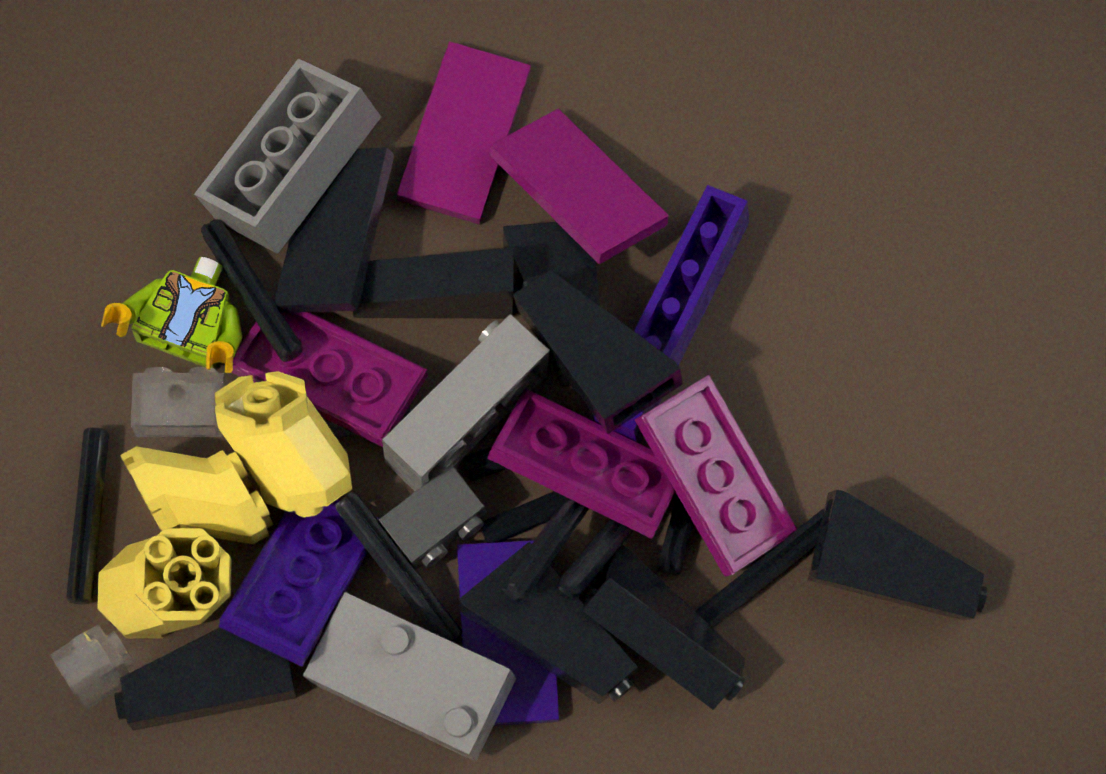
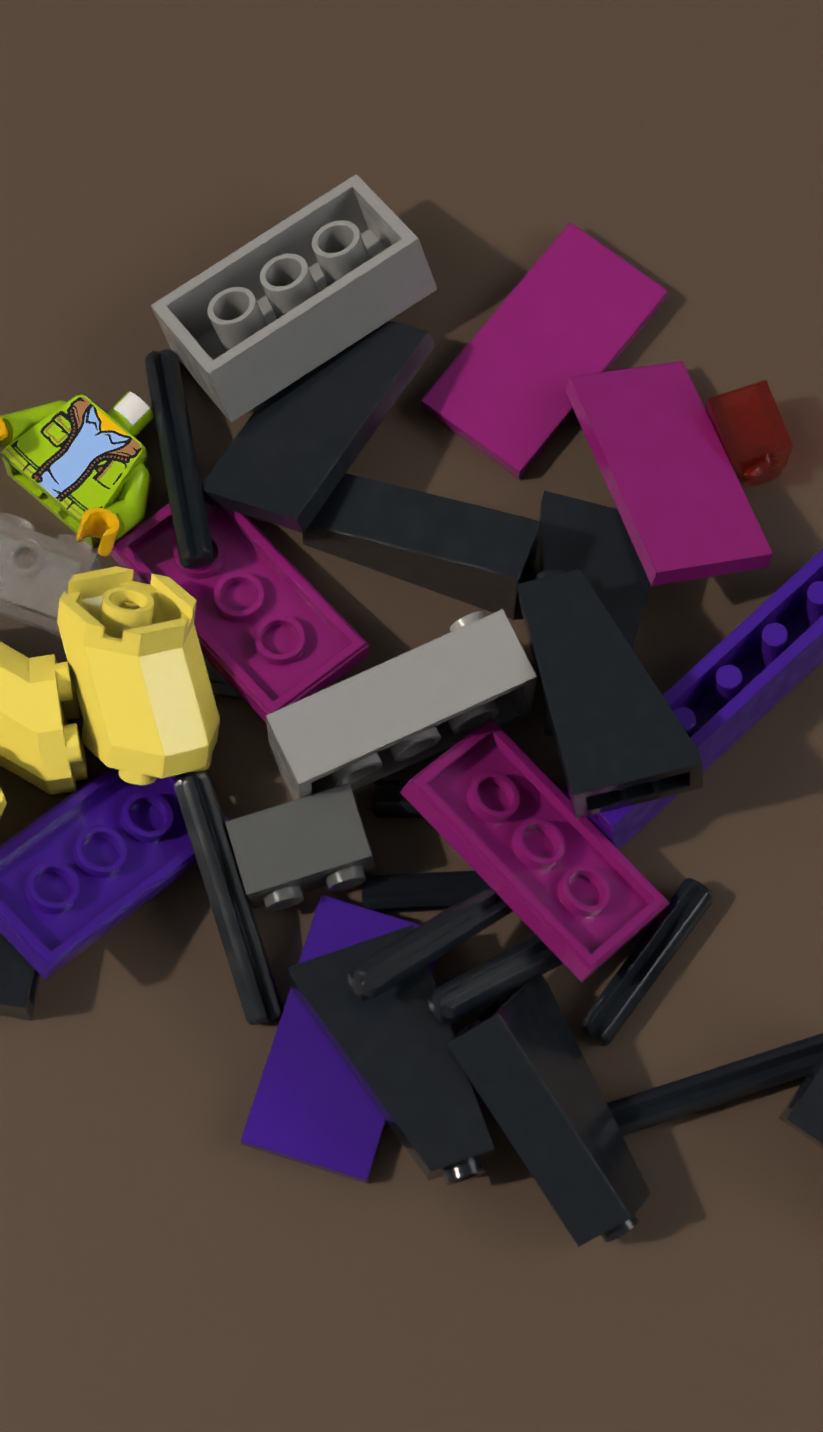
camera: 25 degrees right, 0 degrees up
(410, 676) = (187, 1048): light grey brick -> none
(622, 139) = (751, 432): none -> clear red brick
(716, 475) = (705, 929): magenta tile -> none

